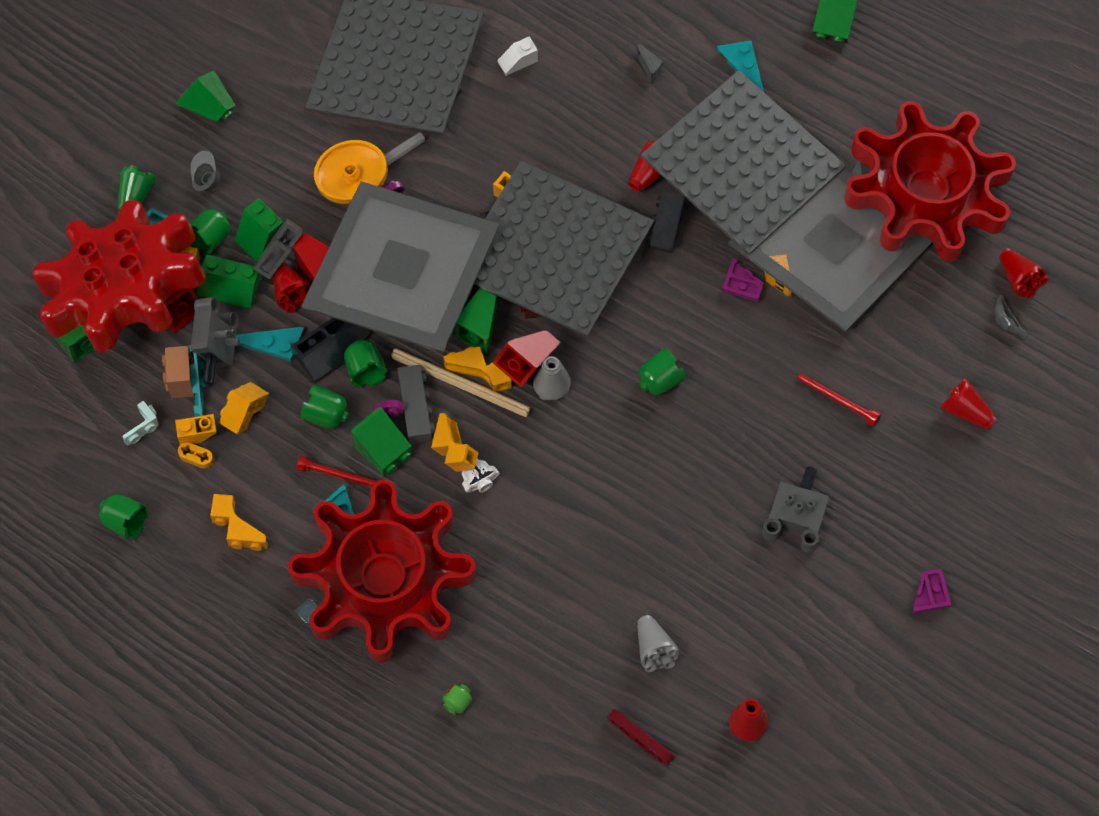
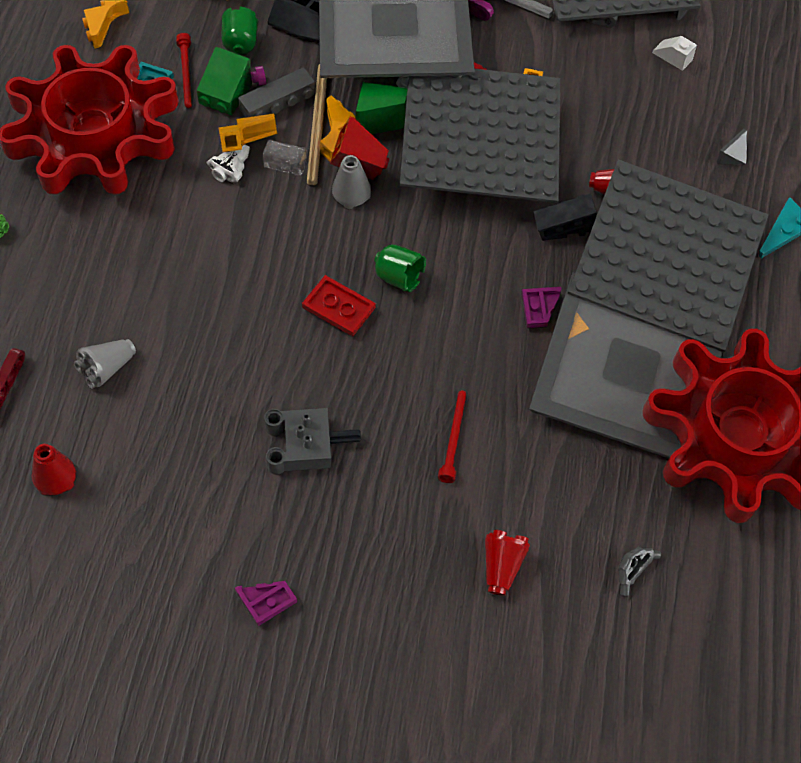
camera: 65 degrees right, 5 degrees down
(364, 363) = (296, 44): green cylinder -> none
(493, 423) = (284, 157): none -> clear brick
(674, 438) = (338, 305): none -> red plate
(1022, 273) = (694, 562): red cone -> none

